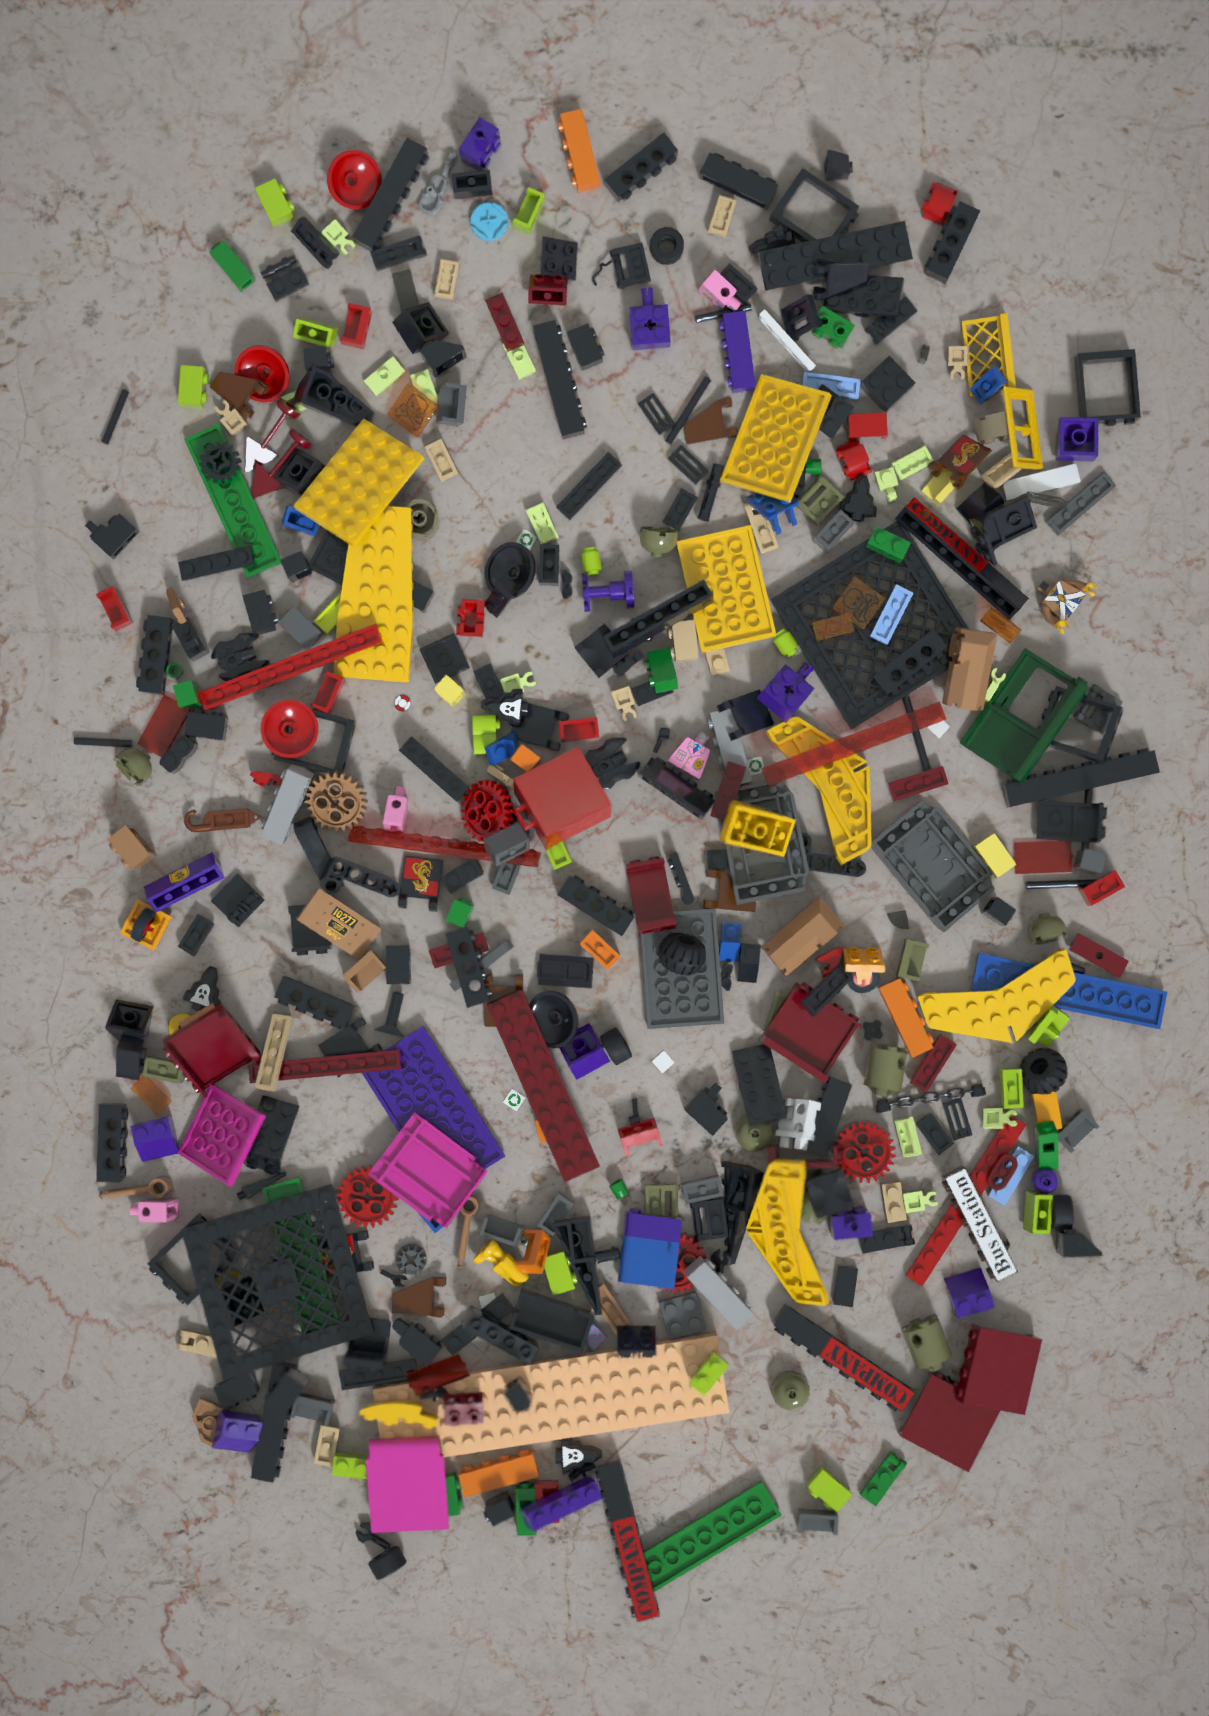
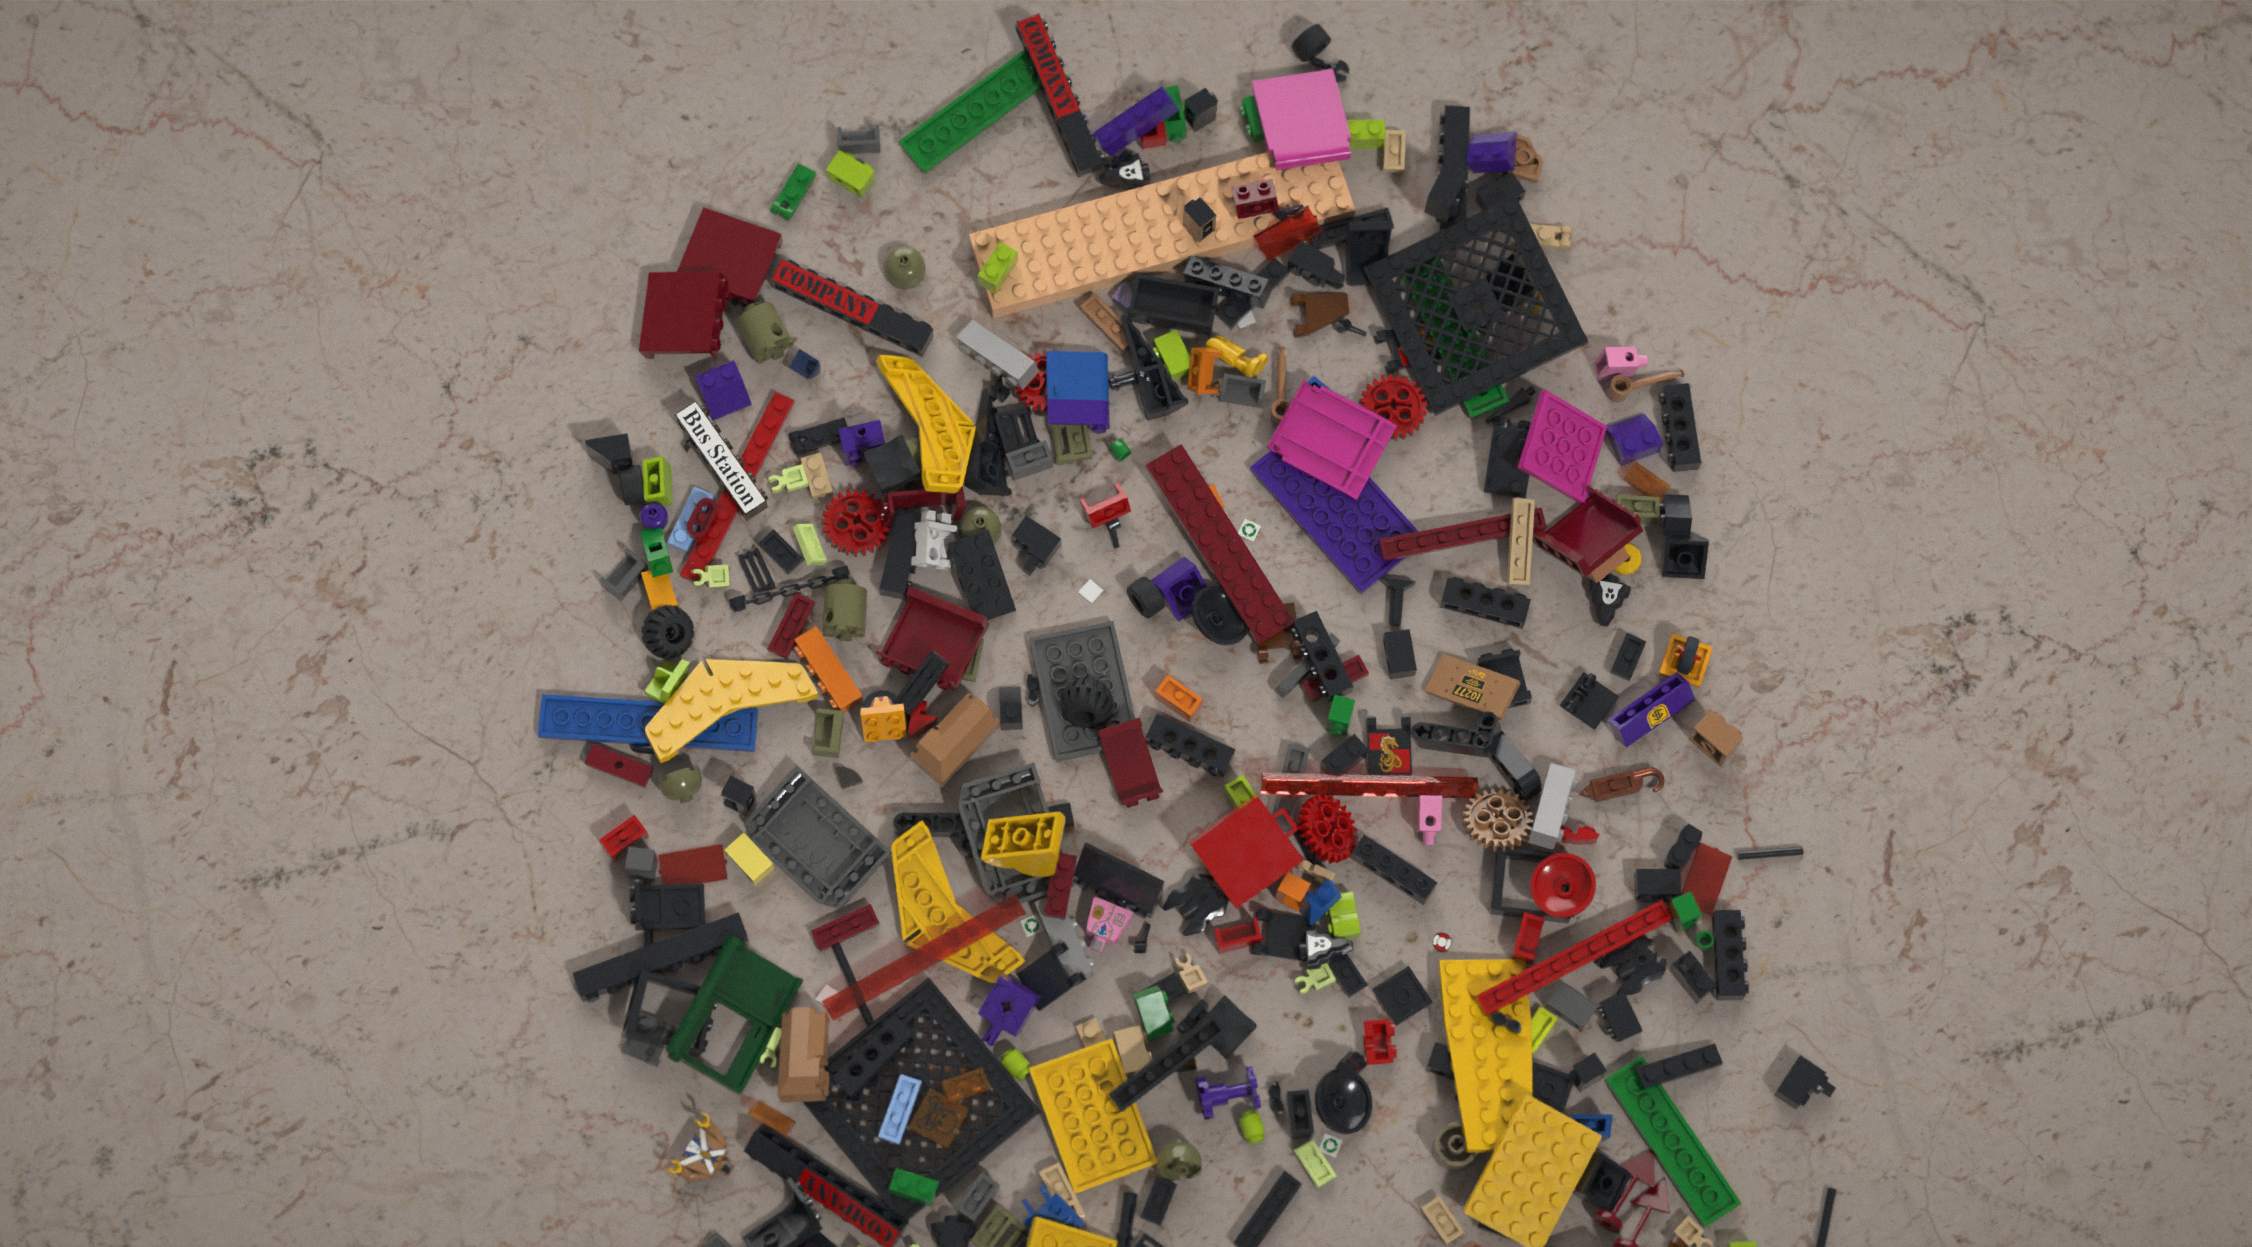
camera: 170 degrees right, 15 degrees down
(114, 608) = (1783, 1001): red panel -> none
(134, 765) = (1729, 830): olive cylinder -> none
(168, 1281) = (1592, 293): black window -> none
(176, 605) = (1715, 1010): medium nougat plate -> none
(212, 460) = (1704, 1179): black gear -> none
(313, 1408) = (1413, 187): dark grey panel -> none
(347, 1042) = (1440, 565): black flag -> none
(354, 614) = (1511, 1025): none -> black piece
(364, 971) = (1436, 642): medium nougat panel -> none
(391, 1410) = (1330, 189): yellow slope -> none
(420, 1260) = (1335, 359): dark grey gear -> none
(449, 691) = (1390, 956): light yellow panel -> none
(498, 1473) = (1206, 146): orange brick -> none
(507, 844) = (1300, 790): dark grey panel -> none
(555, 1212) = (1186, 416): dark grey panel -> none
(565, 971) = (1213, 670): black piece -> none
(636, 1339) = (1079, 293): black hinge -> none
(680, 879) = (1098, 786): black plate -> none
(682, 1315) = (1032, 329): dark grey plate -> none
(726, 894) = (1046, 774): reddish brown flag -> none
(730, 942) = (1034, 728): blue slope -> none
(845, 1286) = (858, 381): black tile -> none
(877, 1030) = (863, 647): black plate -> none
(892, 1307) = (805, 365): none -> dark blue plate
(1011, 1088) = (701, 610): lime panel -> none
(1058, 884) = (669, 839): black bar -> none

